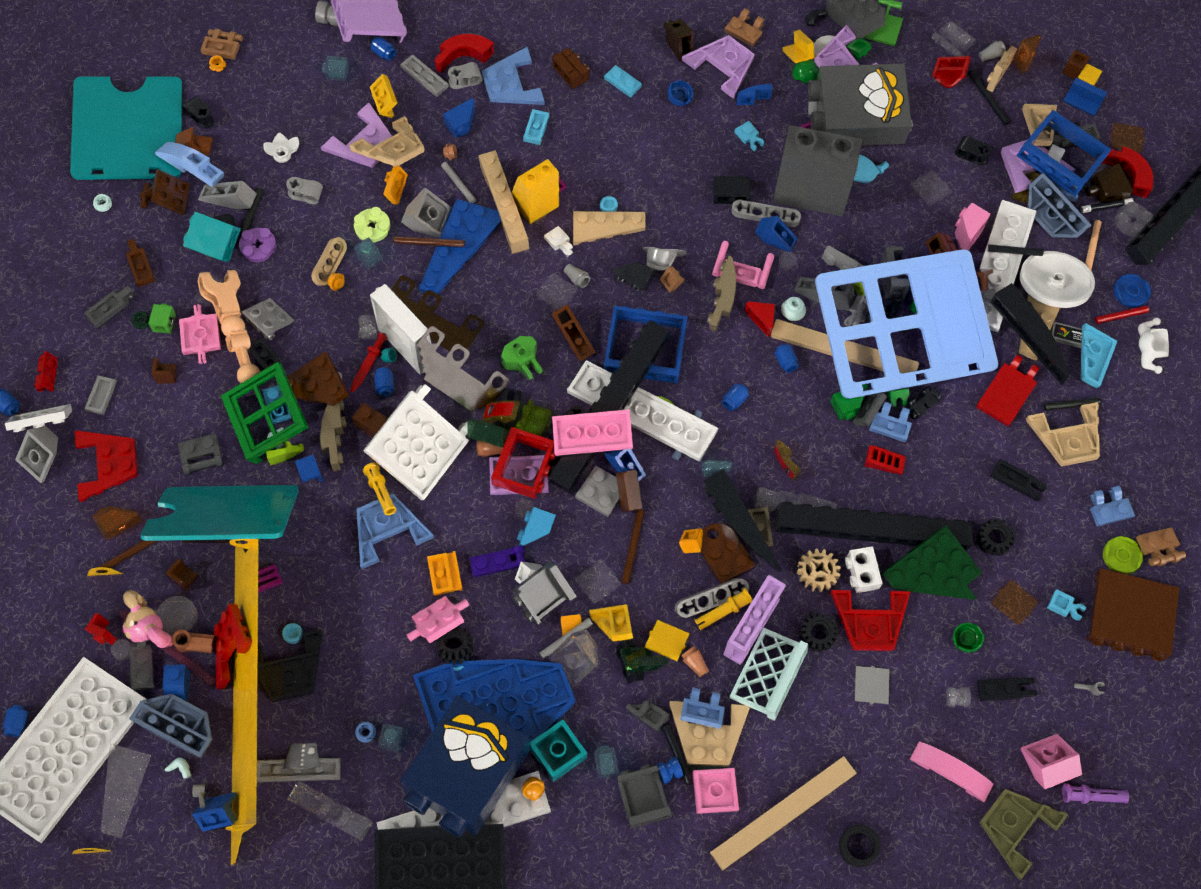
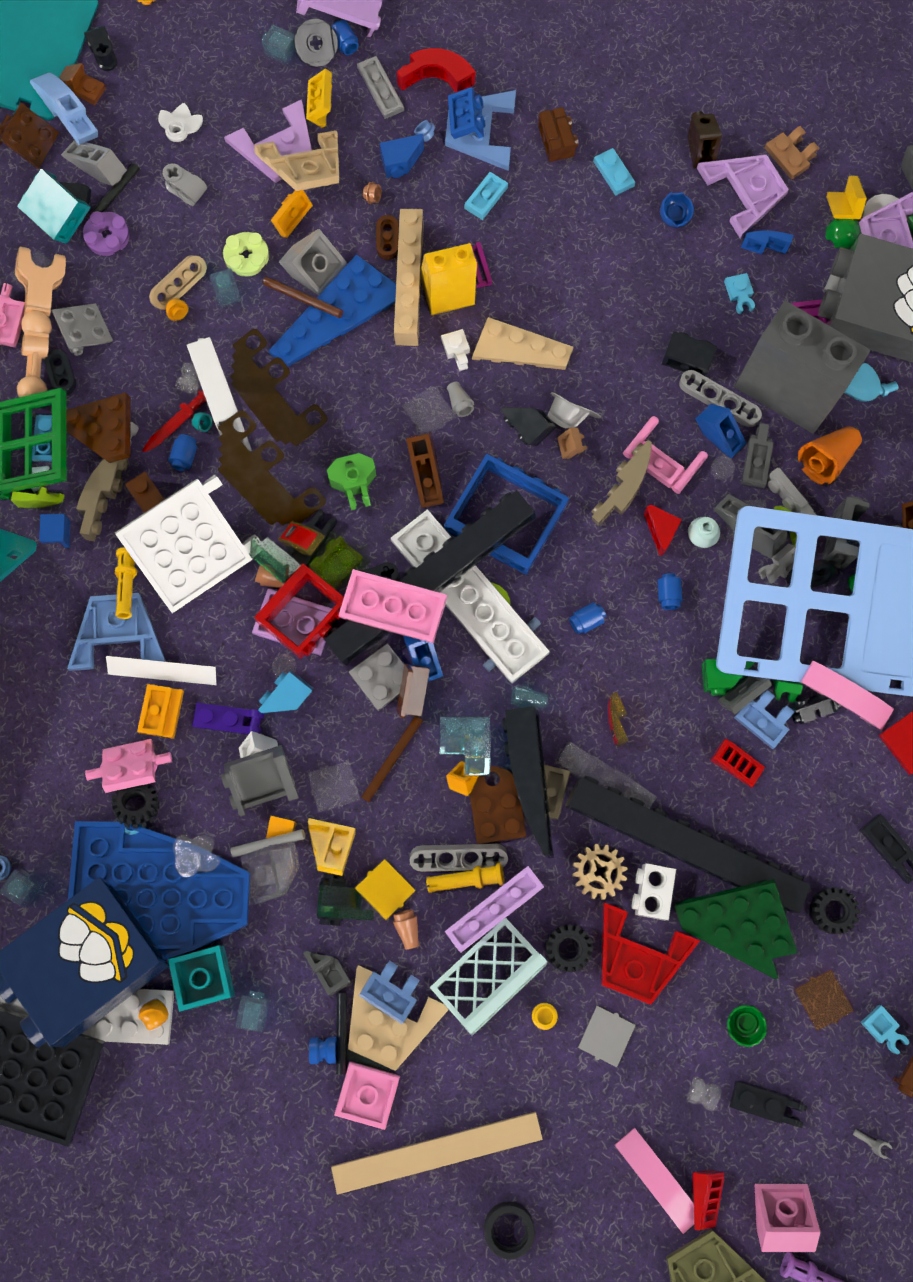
camera: 20 degrees right, 10 degrees up
(373, 61) = (305, 34): none -> plate
(432, 543) = (161, 670): none -> white sticker
(458, 182) = (367, 235): light grey bar -> none
(465, 74) = (428, 102): light grey piece -> none
(471, 93) = (426, 129): none -> medium blue plate
(475, 180) = (387, 238): none -> reddish brown plate
(498, 73) = (466, 113): none -> blue bracket
(515, 664) = (195, 851): none -> clear plate
(608, 204) = (534, 322): medium azure tile -> none
(643, 796) = (280, 1070): dark grey panel -> none
(685, 509) = (467, 737): none -> clear light blue brick
(810, 245) = (758, 458): none -> dark grey hinge
(815, 14) = (884, 162): black arm -> none
(819, 342) = (754, 612): tan tile -> none
(821, 686) = (544, 1016): none -> yellow plate
(859, 225) = (829, 454): none -> orange cone
(942, 383) = (847, 694): none -> bright pink slope
(990, 766) = (707, 1197): none -> red slope

